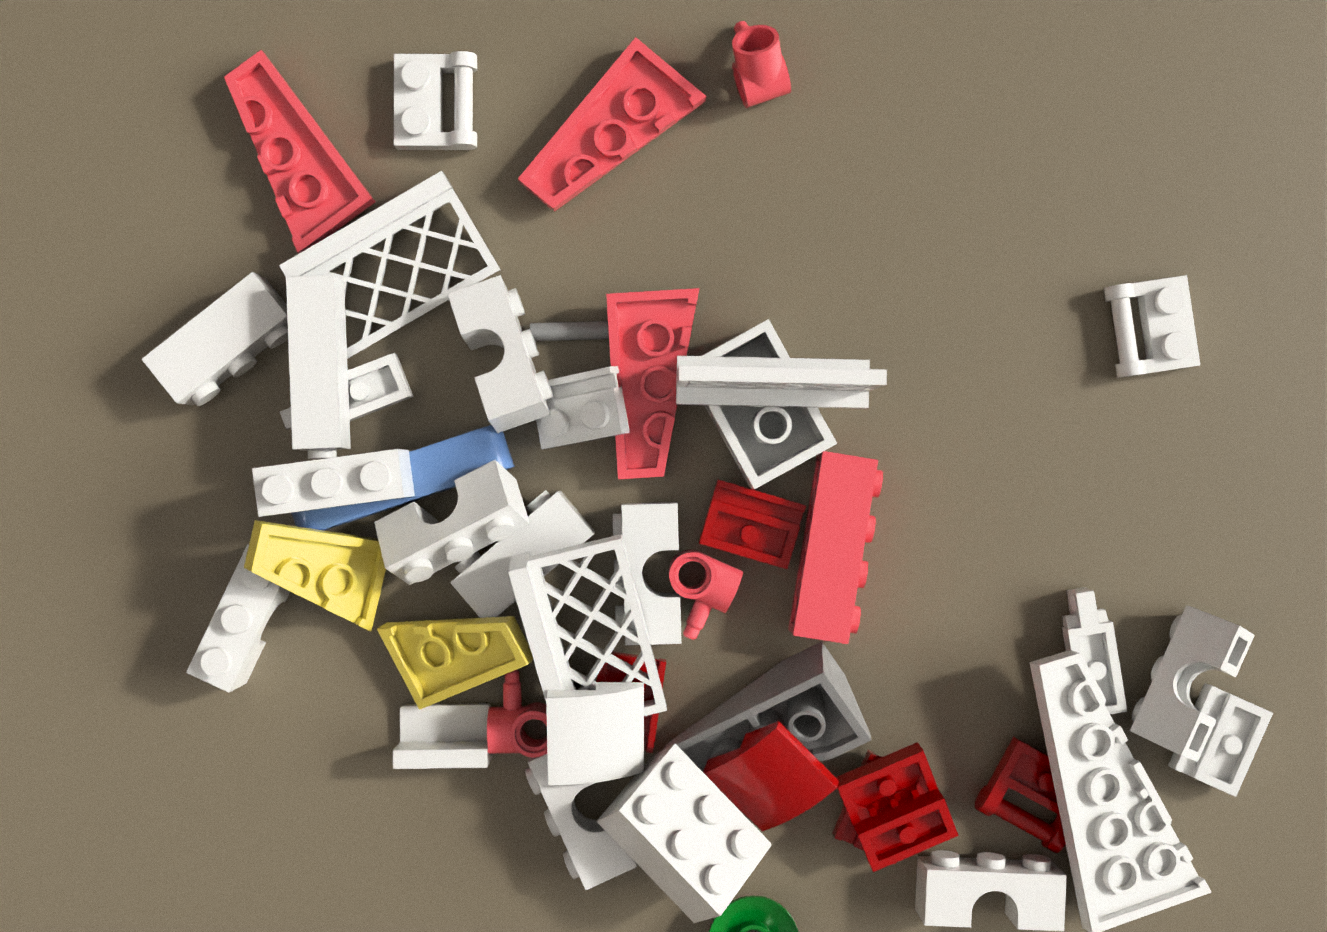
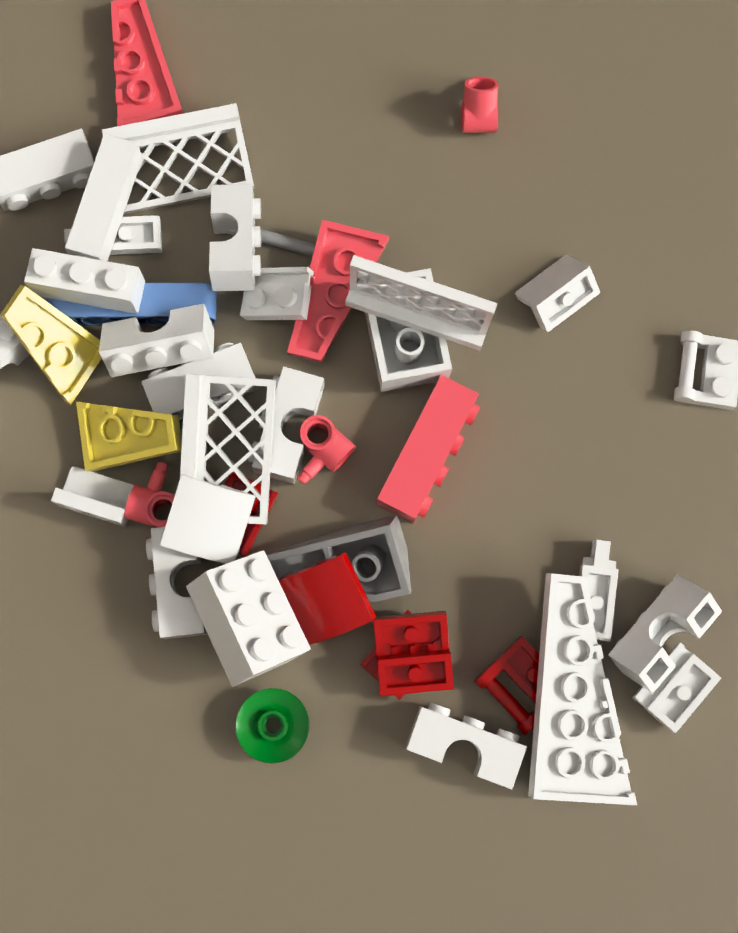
camera: 15 degrees right, 10 degrees down
(420, 101) = (238, 61): white plate -> none
(615, 120) = (367, 113): coral wing -> none
(752, 524) = (373, 415): red plate -> none
(933, 284) = (559, 291): none -> white panel

